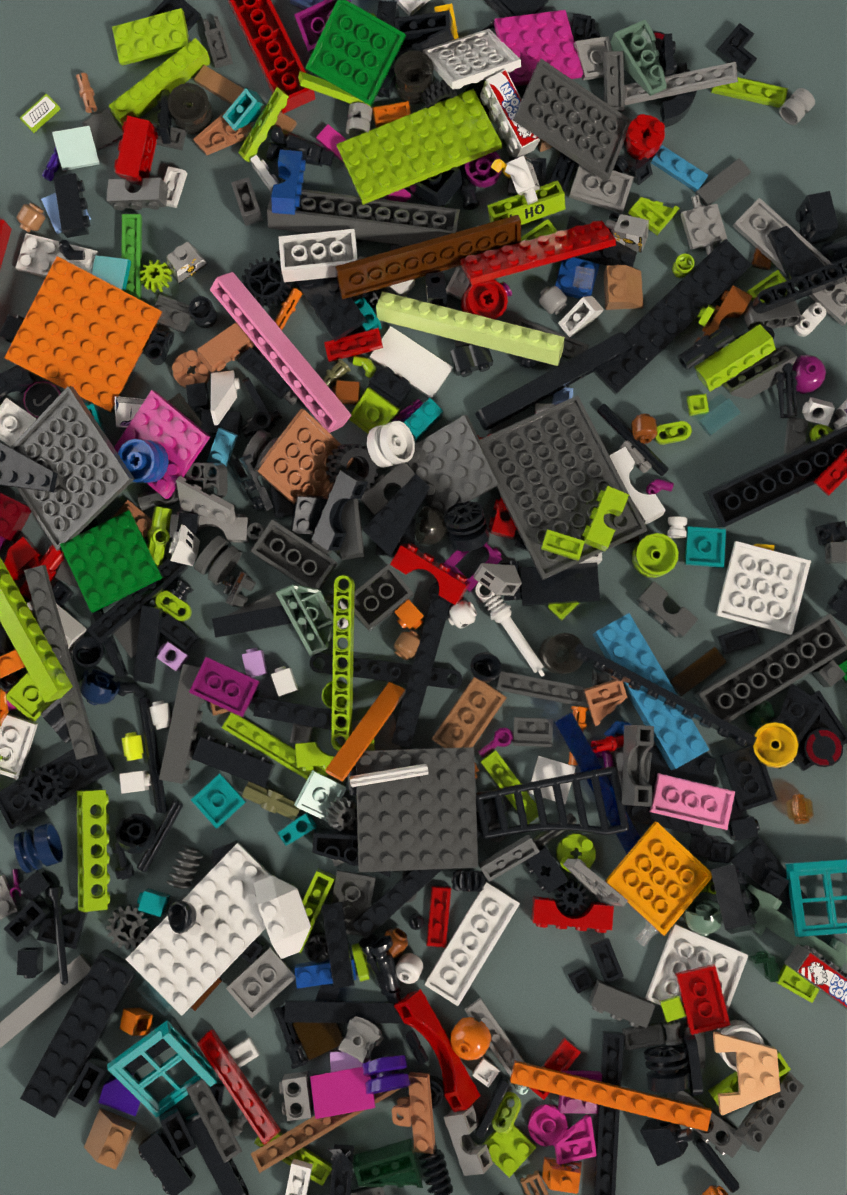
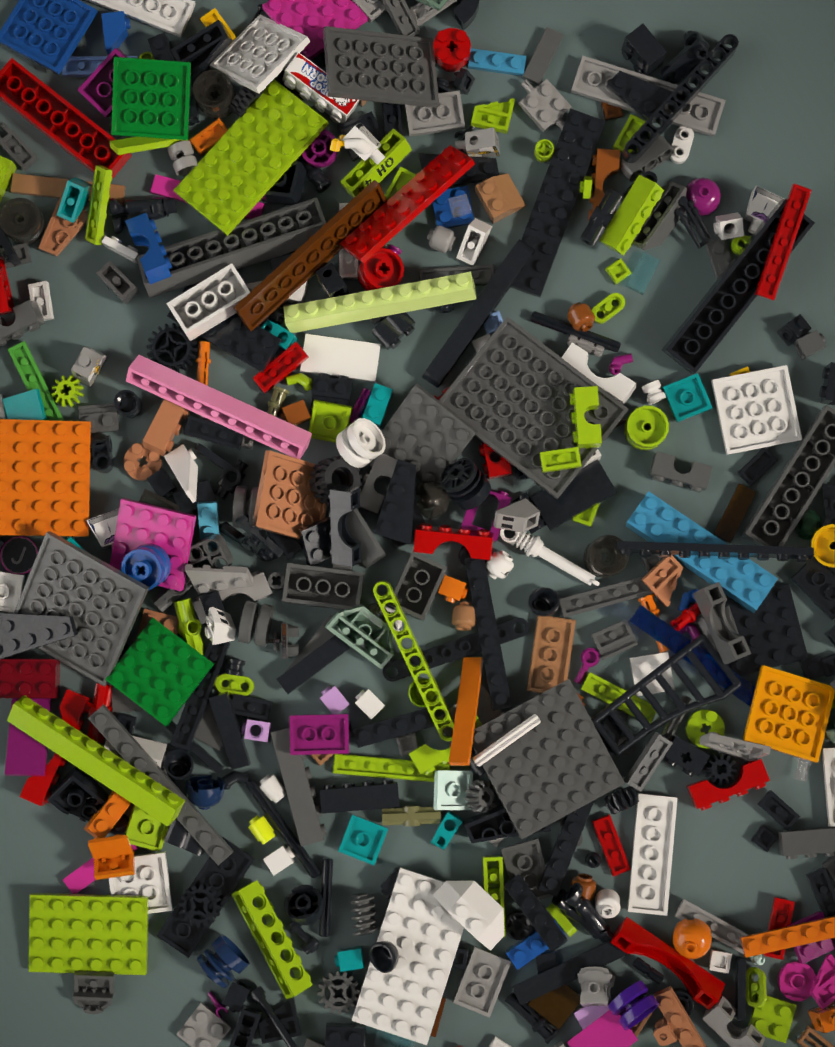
camera: 25 degrees left, 0 degrees up
(692, 801) = (785, 631): bright pink tile -> none

